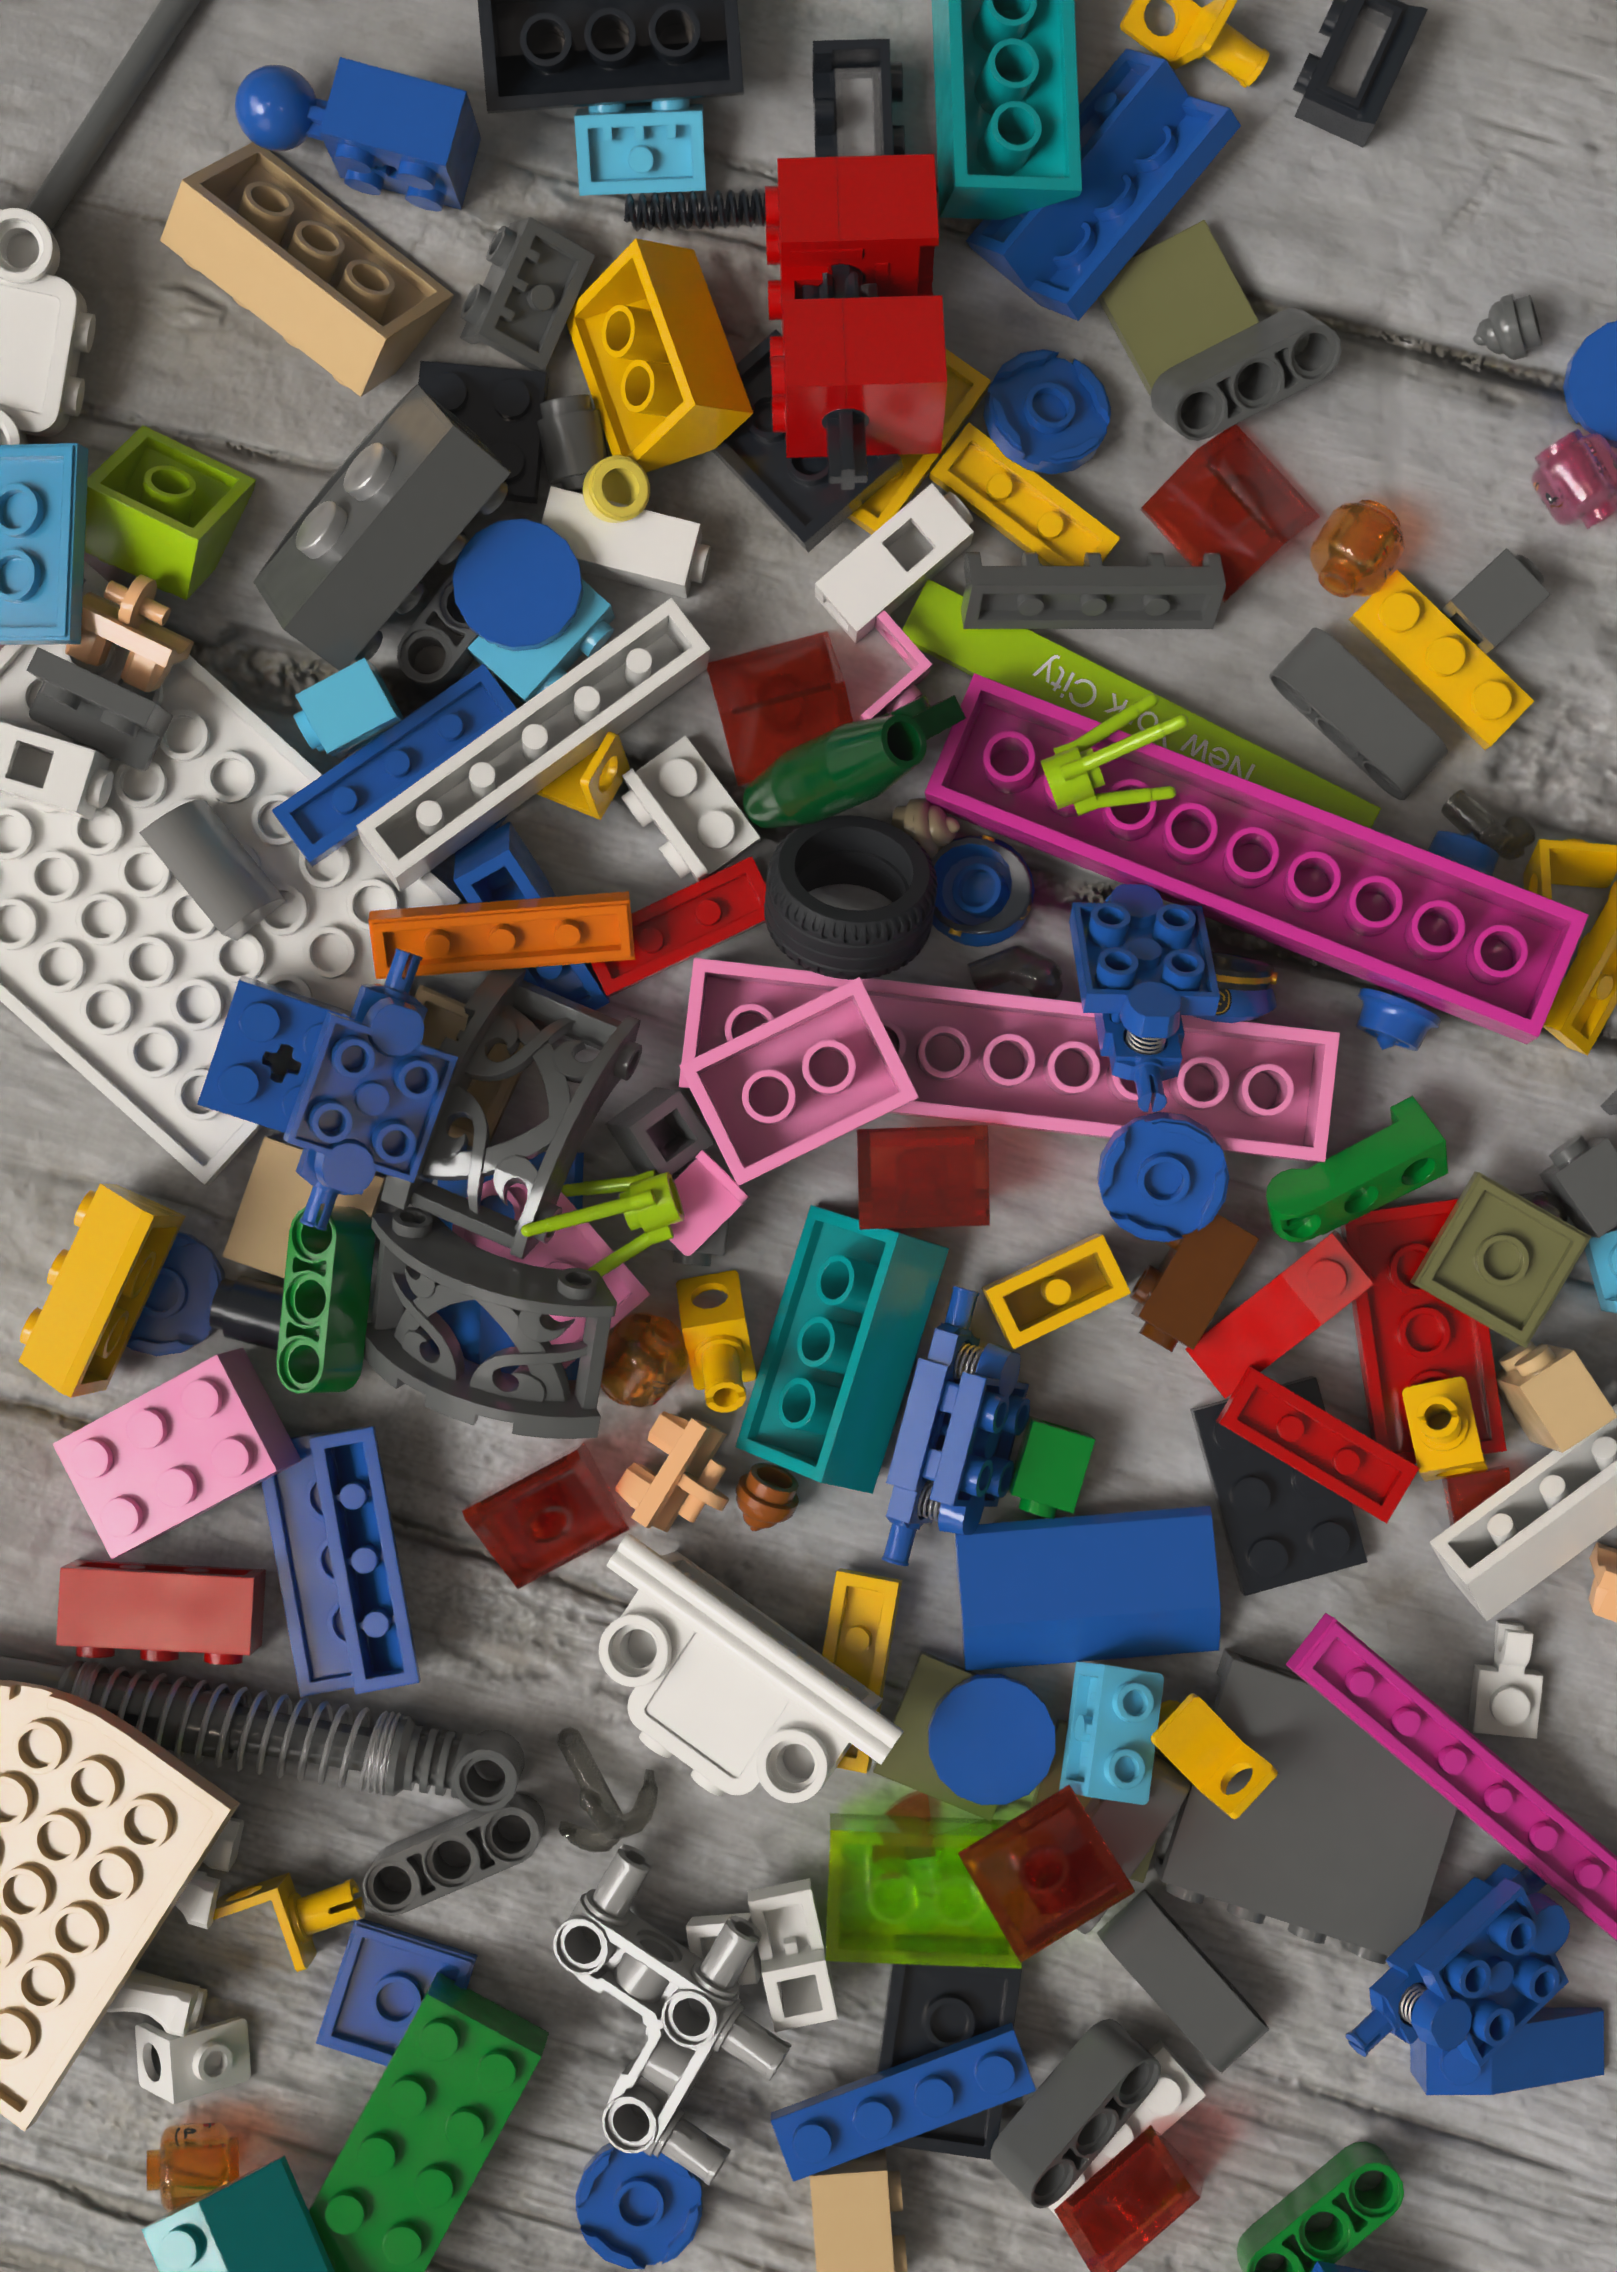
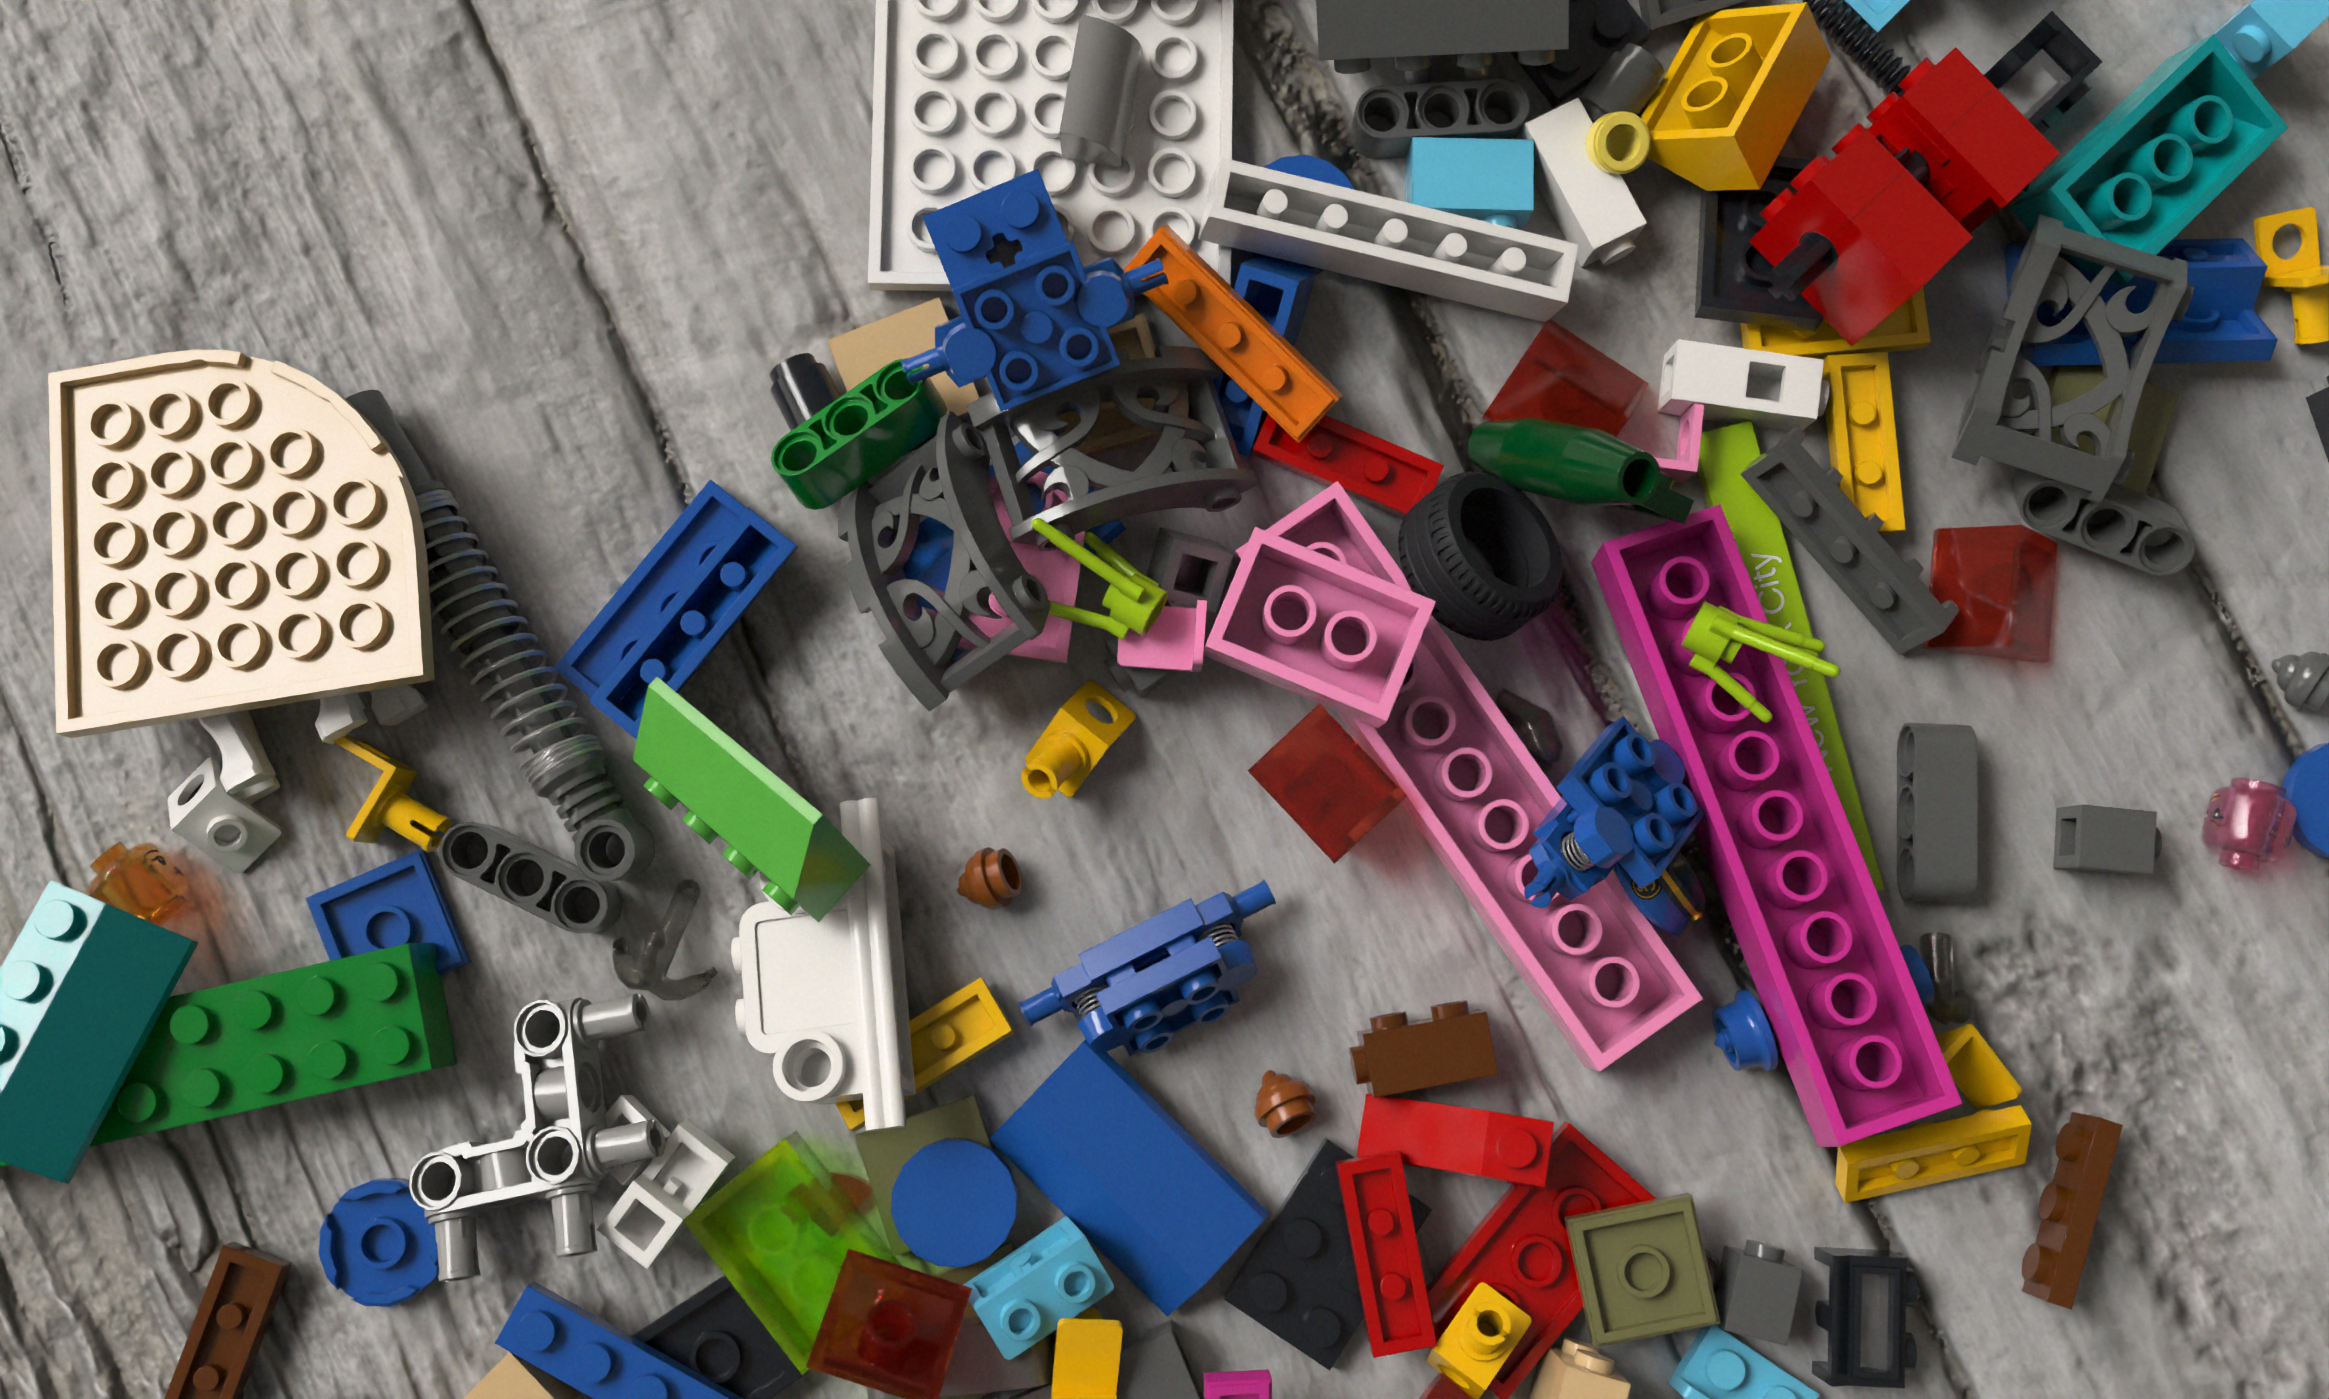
camera: 45 degrees right, 5 degrees down
(98, 1289) = (728, 270): yellow slope -> none
(160, 1610) = (532, 513): brick -> none
(176, 1452) = (657, 424): bright pink brick -> none
(180, 1300) = (757, 336): blue tile -> none
(329, 808) = (1206, 133): blue plate -> none
(347, 710) = (1294, 91): medium azure brick -> none
(518, 584) = (1490, 131): blue tile -> none
(546, 1645) = (744, 805): none -> bright green slope
(547, 1516) = (838, 731): clear red slope -> none
(592, 781) = (1396, 308): yellow bracket -> none
(643, 1360) = (1012, 700): clear orange head -> none
(685, 1478) = (953, 805): light nougat hips -> none
(690, 810) = (1435, 396): white bracket -> none
(841, 1350) = (1147, 840): teal slope -> none
(926, 824) = (1578, 570): dark tan plate -> none
(981, 891) = (1564, 652): blue piece -> none
(1026, 250) = (1995, 420): none -> dark grey fence
(1046, 412) = (1930, 396): blue tile -> none
(1050, 1467) = (1193, 1069): green brick -> none
(1056, 1290) = (1328, 956): yellow brick -> none
(1138, 1420) = (1284, 1104): none -> dark orange plate
(1162, 1176) = (1482, 960): blue tile -> none
(1357, 549) = (2053, 707): clear orange head -> none
(1358, 1177) = (1607, 1109): green leg -> none
(1441, 660) = (2027, 839): yellow plate -> none

